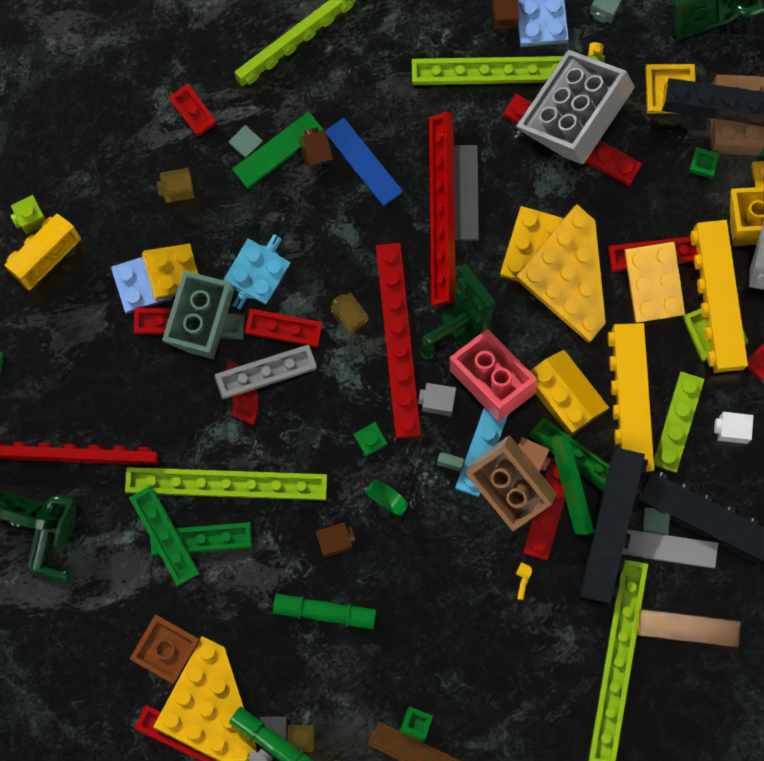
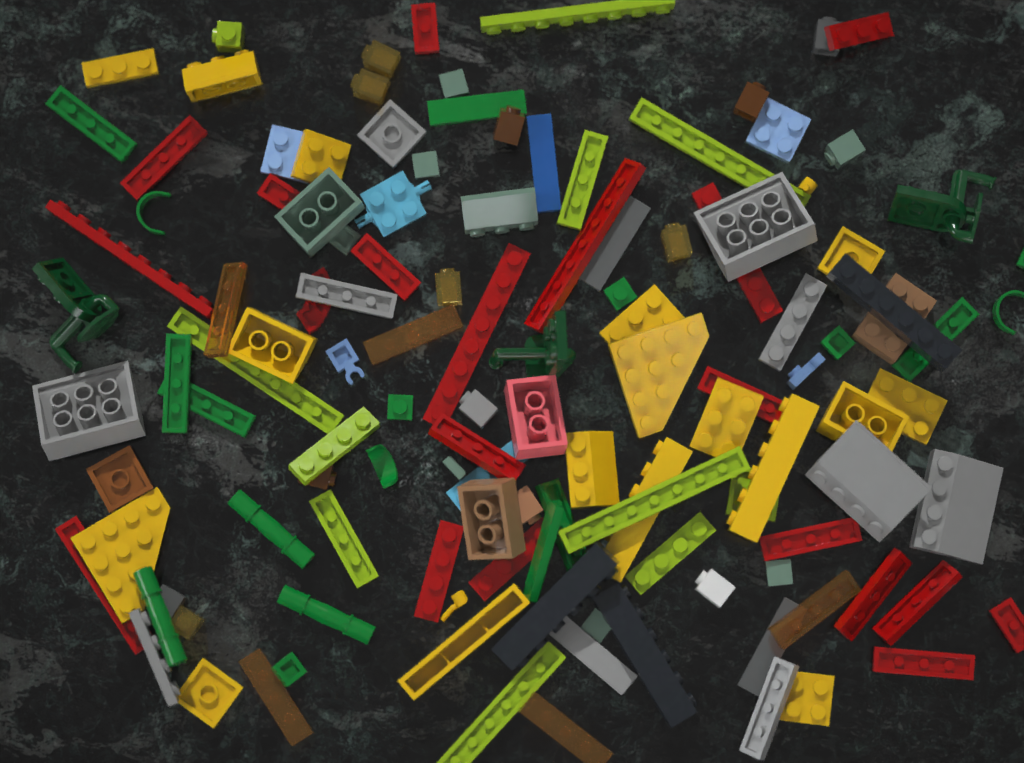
camera: 30 degrees right, 5 degrees up
(34, 351) = (164, 158): none -> red plate
(38, 400) = (140, 206): none -> green helmet
(100, 607) = (88, 411): none -> light grey slope
(168, 446) = (225, 310): none -> clear orange tile
(170, 156) = (381, 58): none -> clear yellow brick
(219, 214) = (391, 134): none -> light grey plate
(227, 452) = (271, 345): none -> yellow slope
(264, 223) = (425, 165): none -> sand green tile
(296, 425) = (344, 358): none -> medium blue plate
(335, 505) = (334, 445): none -> lime plate
(342, 371) = (413, 334): none -> clear orange tile
(352, 222) = (499, 211): none -> sand green slope
(392, 580) = (344, 538): none -> lime plate
(405, 156) = (582, 180): none -> lime plate
(418, 655) = (326, 614): none -> green piece
(458, 432) = (475, 448): none -> red plate
(492, 558) = (439, 571): none -> red plate
(497, 232) = (620, 294): none -> green plate
(517, 160) = (676, 242): none -> clear yellow brick
(553, 604) = (463, 642): none -> yellow brick
(638, 383) = (654, 500): none -> lime plate
(655, 169) = (792, 322): none -> light grey plate
(690, 206) = (799, 374): none -> medium blue plate

